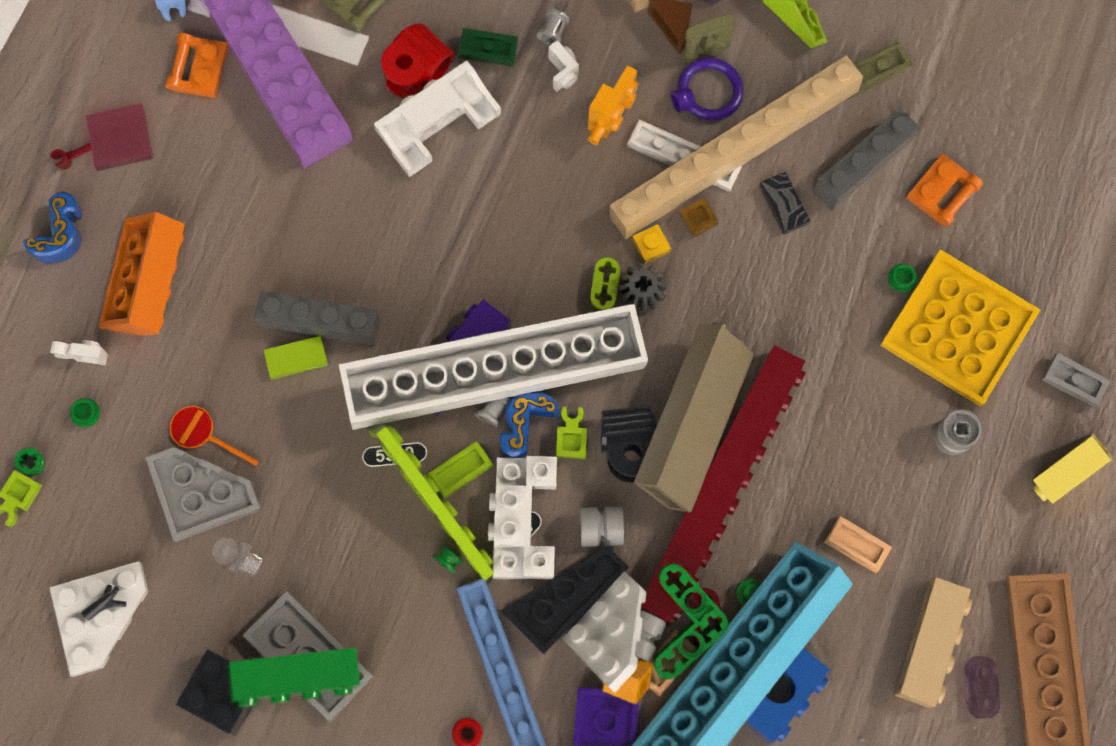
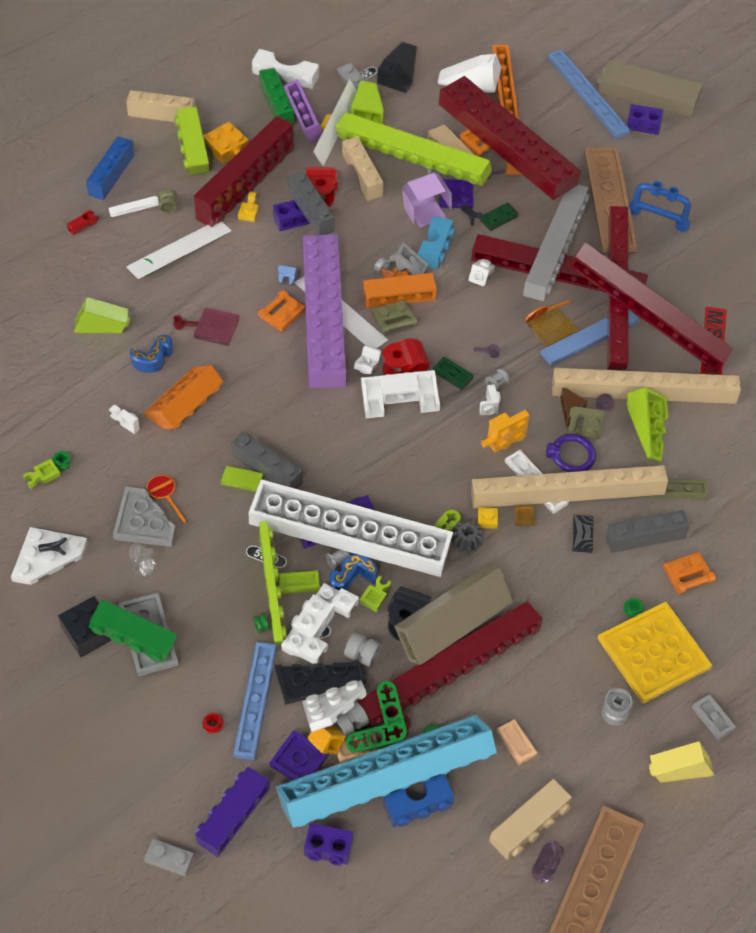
camera: 30 degrees right, 20 degrees down
(85, 412) = (107, 450): green plate -> none
(363, 86) = (368, 360): none -> white bracket

